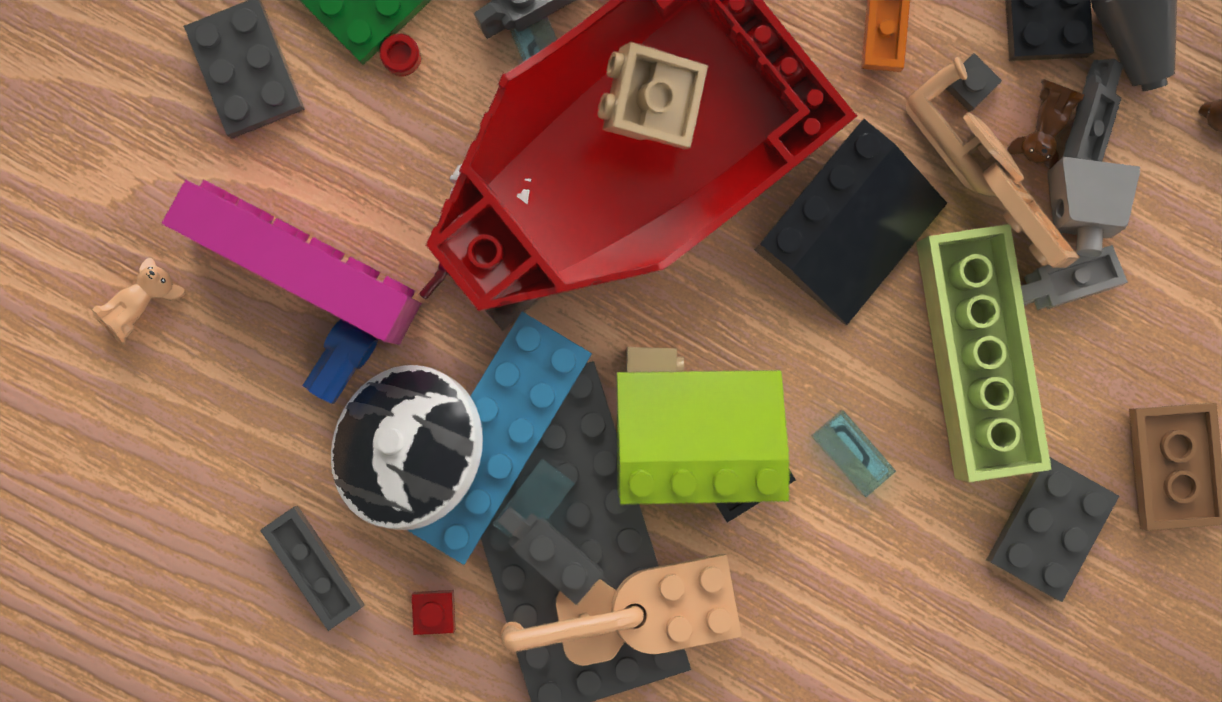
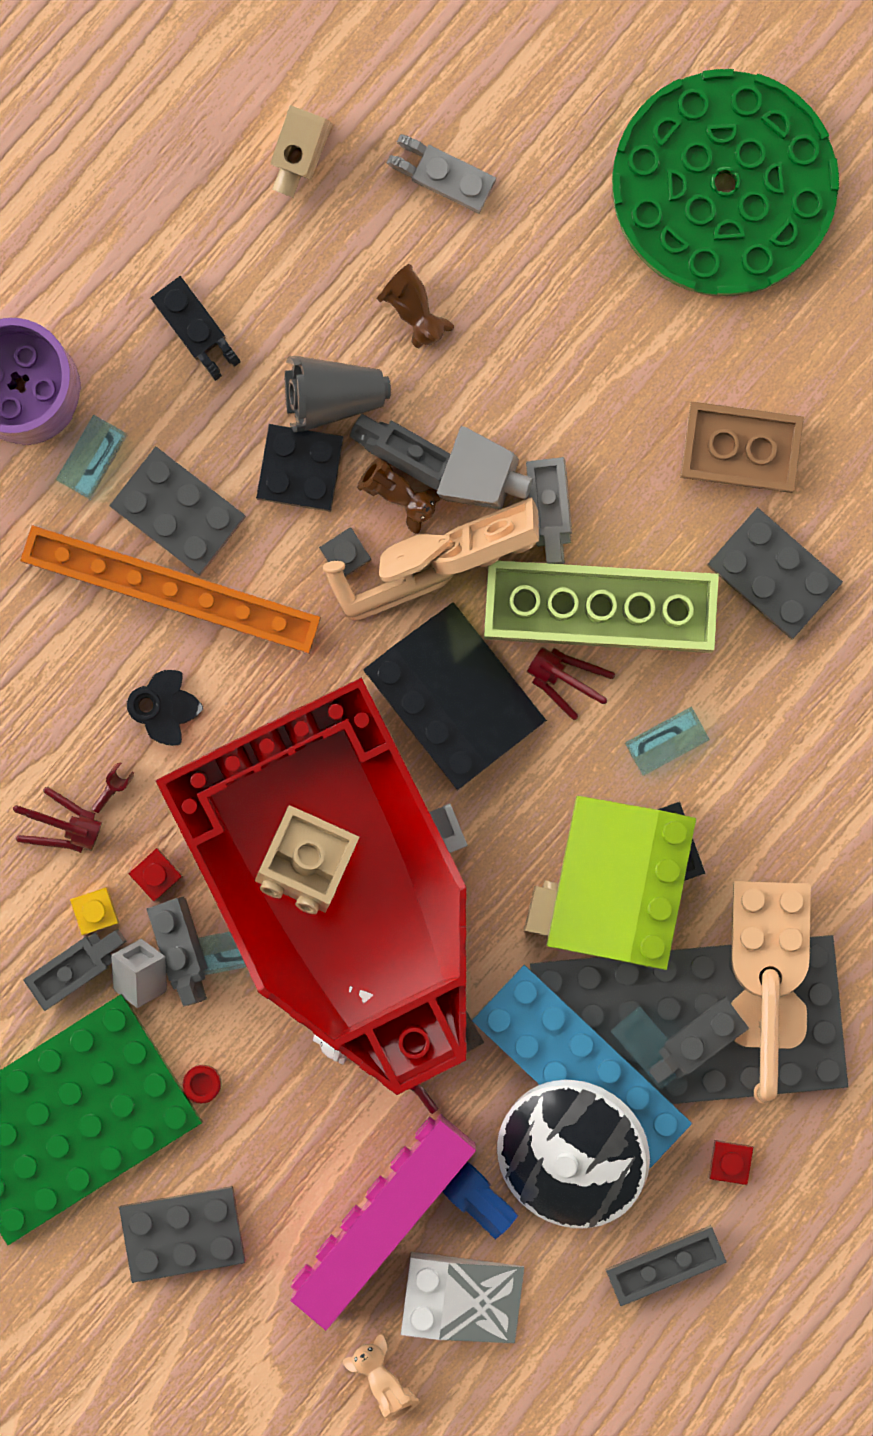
camera: 75 degrees left, 0 degrees up
(234, 362) = (461, 1299): none -> white slope
(714, 247) = (448, 828): none -> light grey panel
(904, 316) = (548, 668): none -> dark red plant

